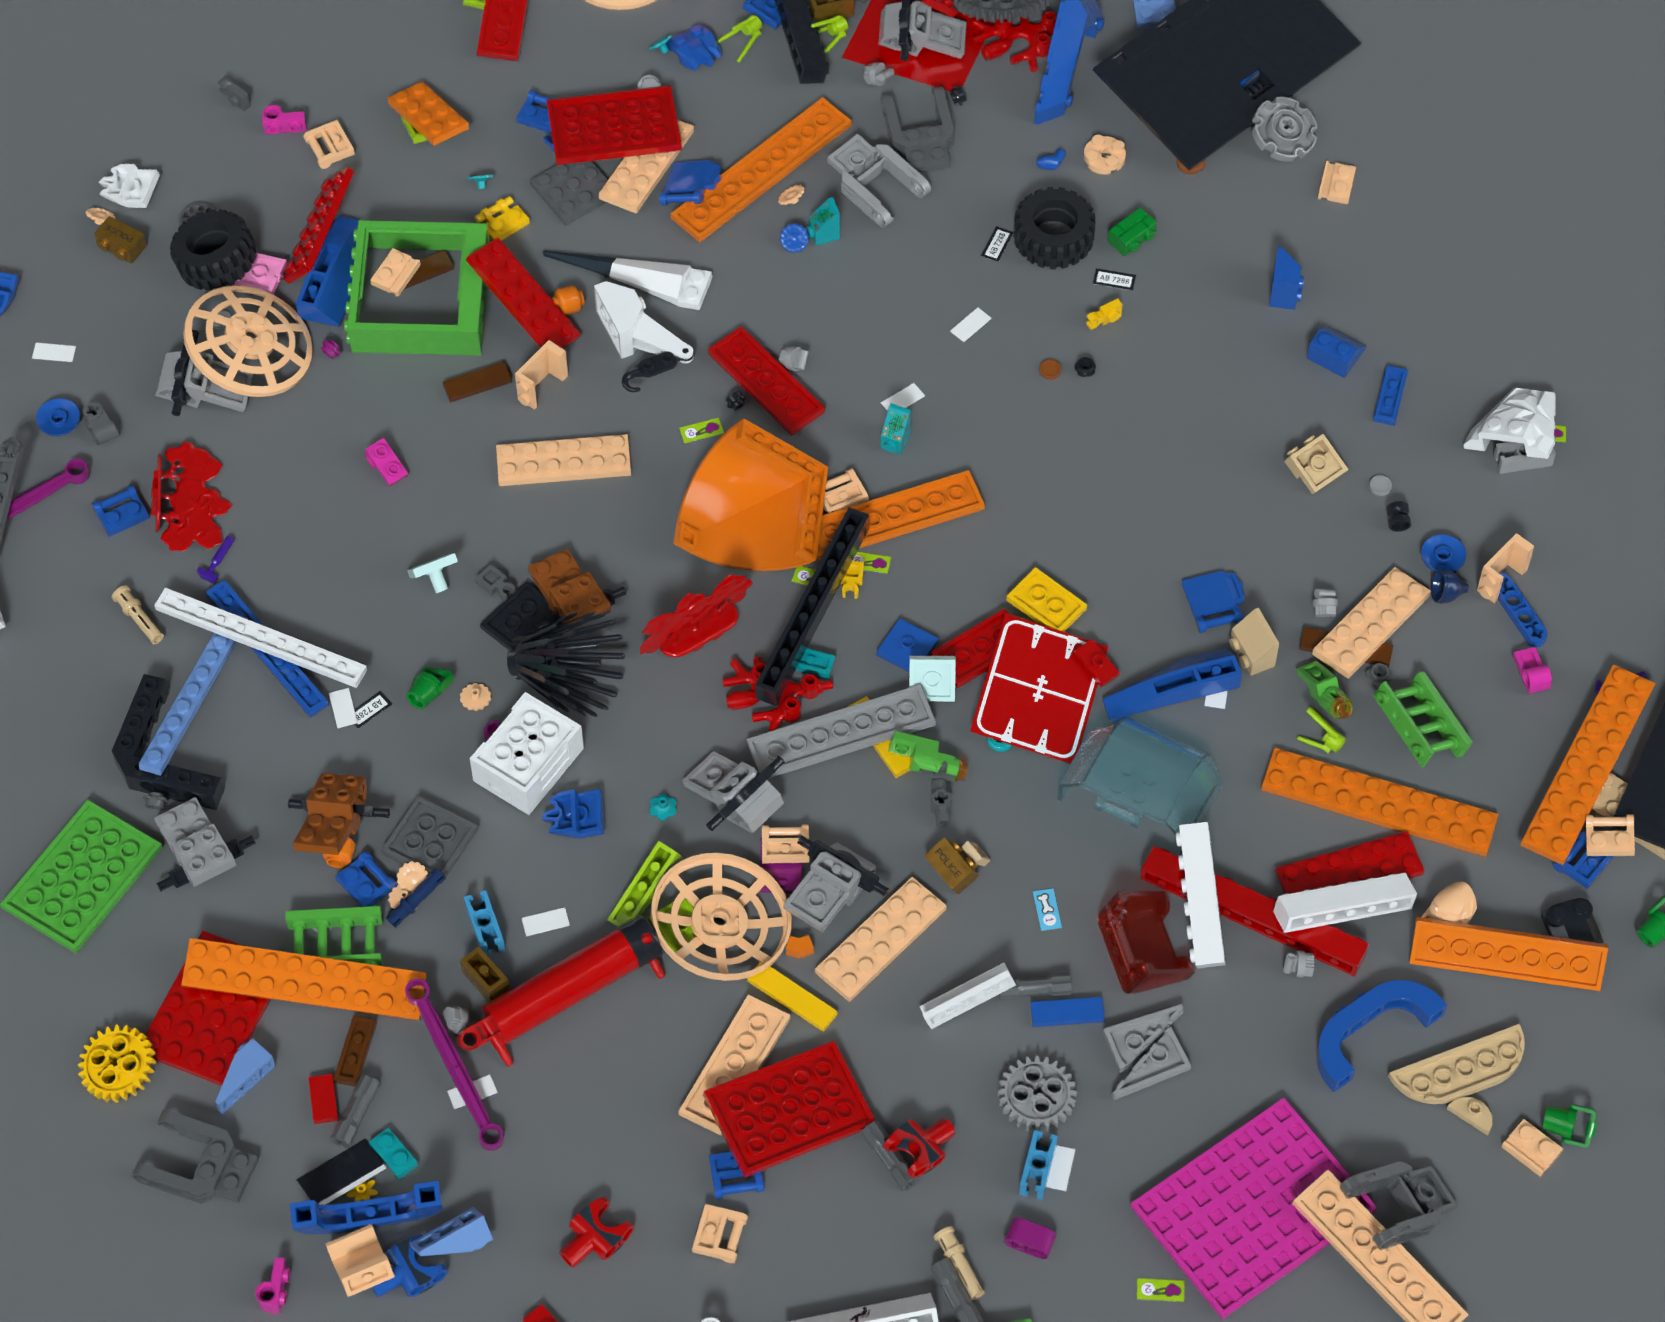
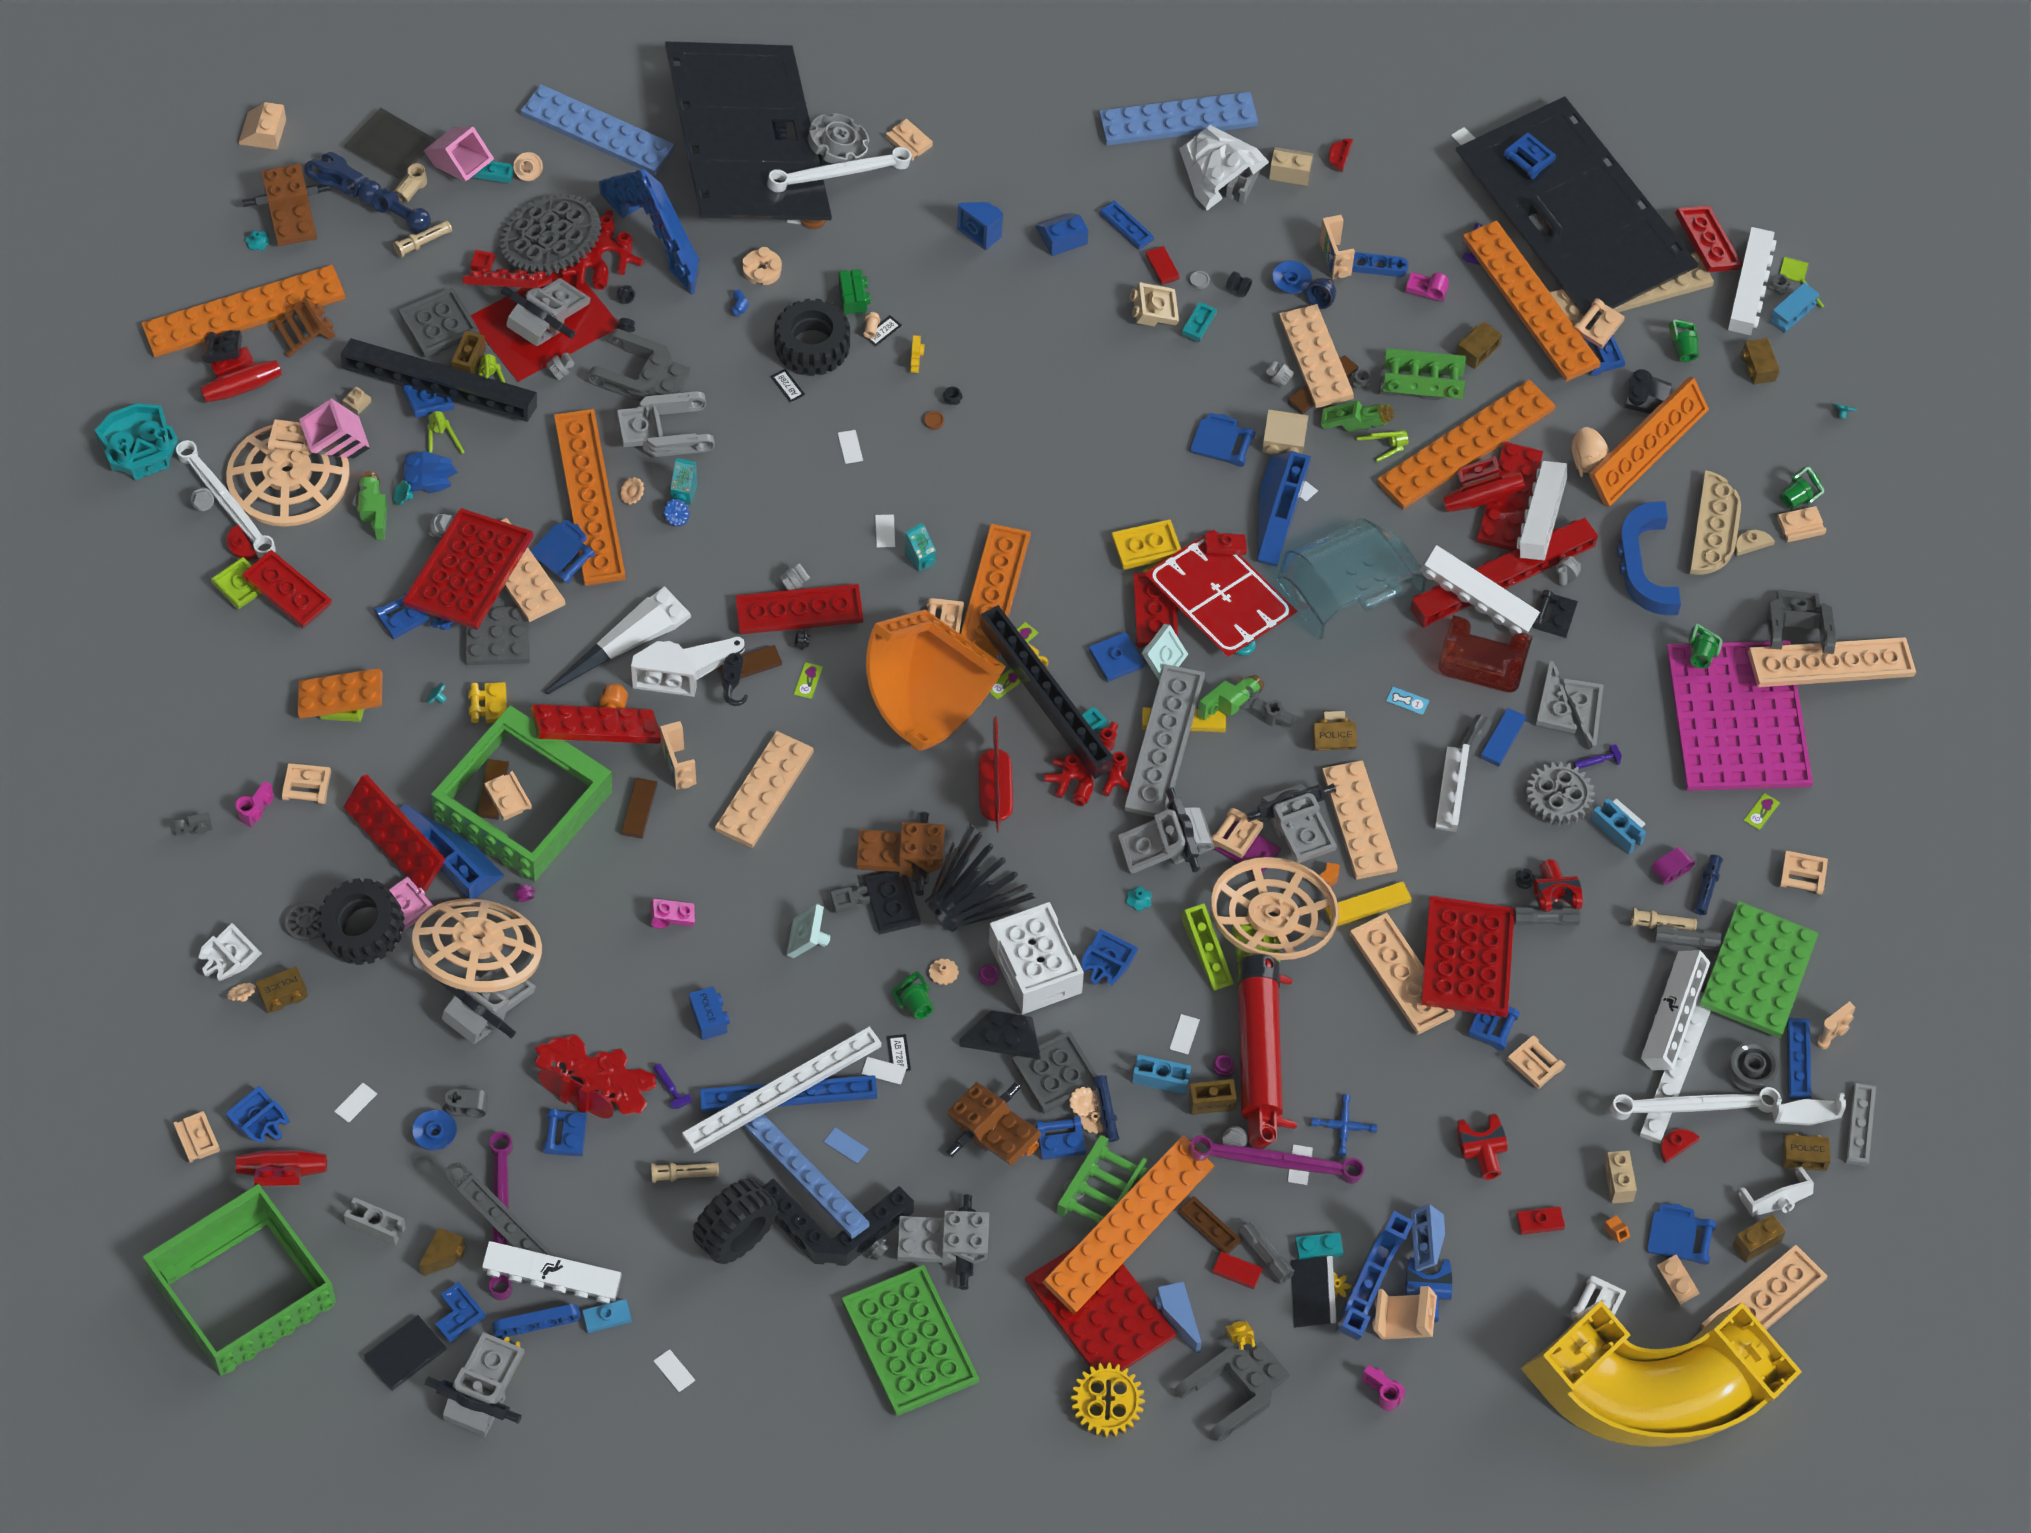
camera: 60 degrees left, 0 degrees up
(95, 670) = (735, 1221): none -> black tyre
(249, 722) = (846, 1145): none -> medium blue sticker
(253, 1134) = (1241, 1333): none -> yellow plate
(305, 544) = (708, 1012): none -> blue brick
(438, 777) = (1004, 1034): none -> black wing
(530, 968) = (1223, 1065): none -> magenta plate
(537, 1104) = (1344, 1125): none -> blue piece
(631, 30) = (371, 504): none -> bright green plate
(688, 382) = (758, 661): none -> reddish brown tile
(921, 1120) = (1524, 883): none -> black plate
(990, 80) = (625, 294): none -> black plate
(1033, 1282) = (1713, 865): none -> dark blue pin
(1107, 1109) = (1615, 753): none -> dark purple piece
(1109, 265) = (872, 321): none -> light nougat pin
(1247, 145) = (839, 169): none -> white piece
(1247, 988) = (1561, 615): none -> black plate
(1295, 1128) = (1703, 646): none -> green piece
(1329, 509) = (1199, 322): none -> teal plate
(1335, 837) = (1482, 485): none -> red plate
(1369, 447) = (1162, 265): none -> red tile
(1500, 749) = (1479, 344): none -> pearl gold brick
(1548, 369) = (1177, 118): none -> medium blue plate
(1573, 484) = (1291, 166): none -> tan slope
(1622, 516) = (1339, 153): none -> red plate

